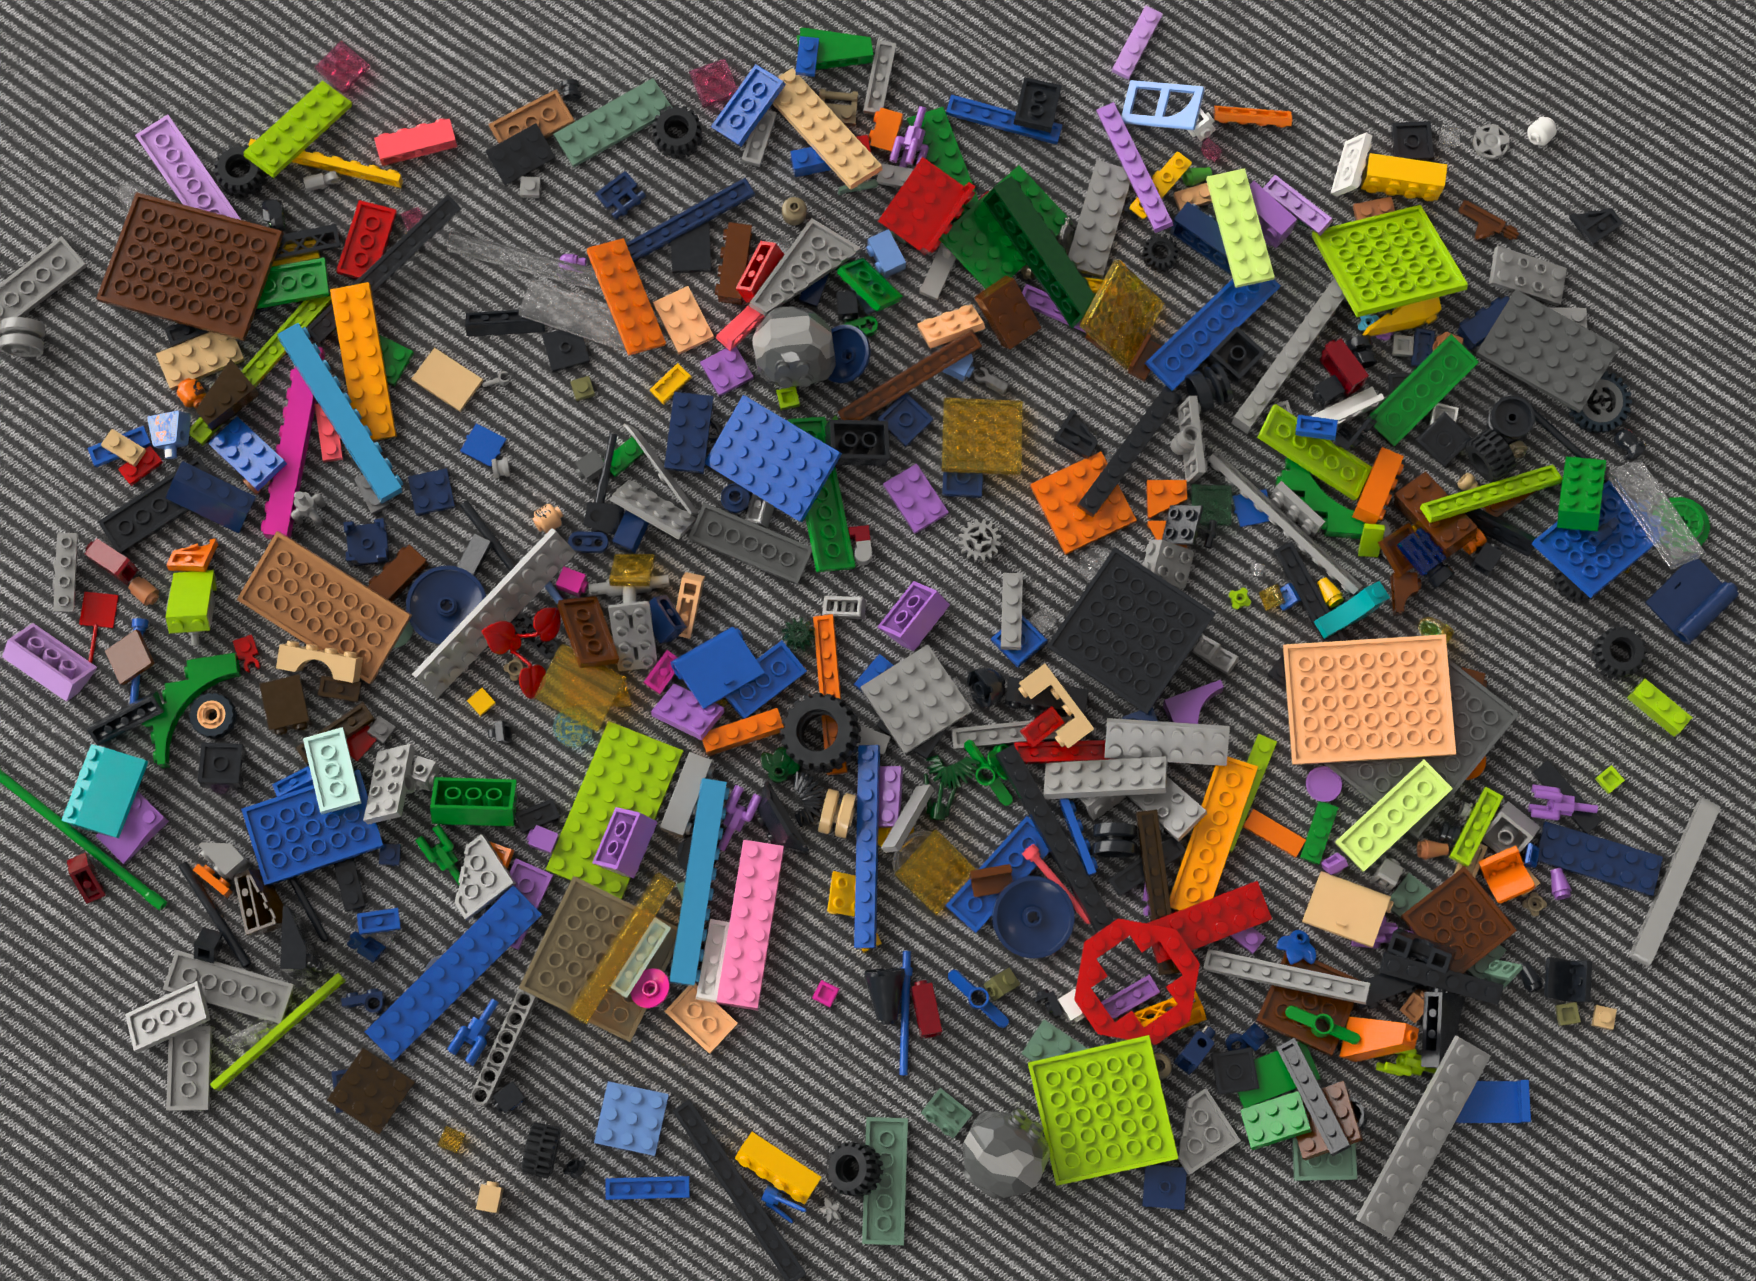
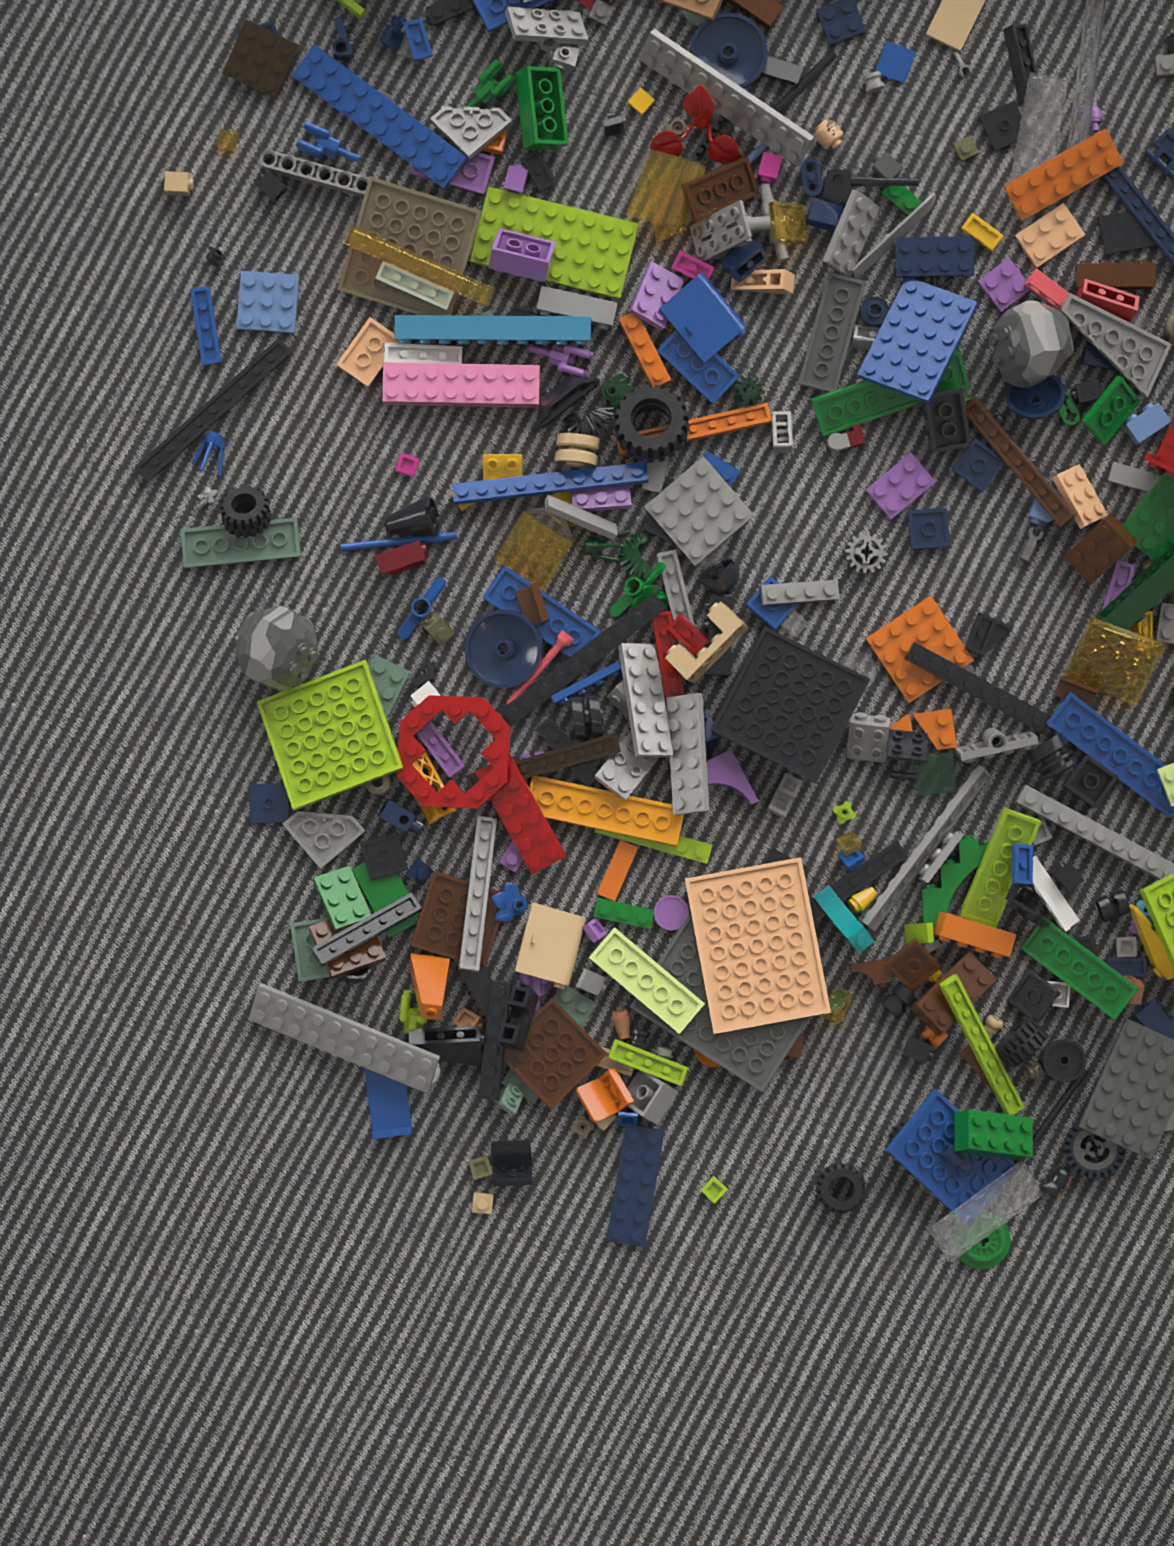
camera: 90 degrees right, 10 degrees up
(390, 855) = (483, 40): dark blue plate -> none
(541, 1150) = (225, 221): black tyre -> none
(571, 732) = (623, 189): clear light blue tile -> none
(649, 980) = (384, 292): dark pink dish -> none
(777, 1168) = (238, 442): yellow brick -> none
(788, 398) = (982, 348): lime plate -> none
(914, 615) = (782, 499): medium lavender slope -> none
(946, 1113) = (310, 591): sand green bracket -> none
(982, 436) = (971, 541): clear yellow plate -> none
(1233, 1038) = (417, 853): dark blue piece -> none
(1247, 513) = (932, 810): blue piece -> none
(1257, 569) = (876, 827): clear plate -> none
(1309, 1019) = (439, 919): green piece -> none
(1340, 361) = (1093, 888): dark red window -> none
(1418, 554) = (908, 977): clear blue plate -> none
(1502, 531) = (948, 1060): black plate -> none
(1530, 978) = (510, 1128): black cone -> none
(1549, 776) = (691, 1149): black tile -> none
(1556, 804) = (680, 1139): medium lavender plant -> none
(1559, 884) = (604, 1149): medium lavender cone -> none
(1659, 707) = (791, 1232): lime brick -> none
(1674, 882) = (622, 1260): light grey beam -> none
(1694, 602) = (903, 1259): dark blue door -> none

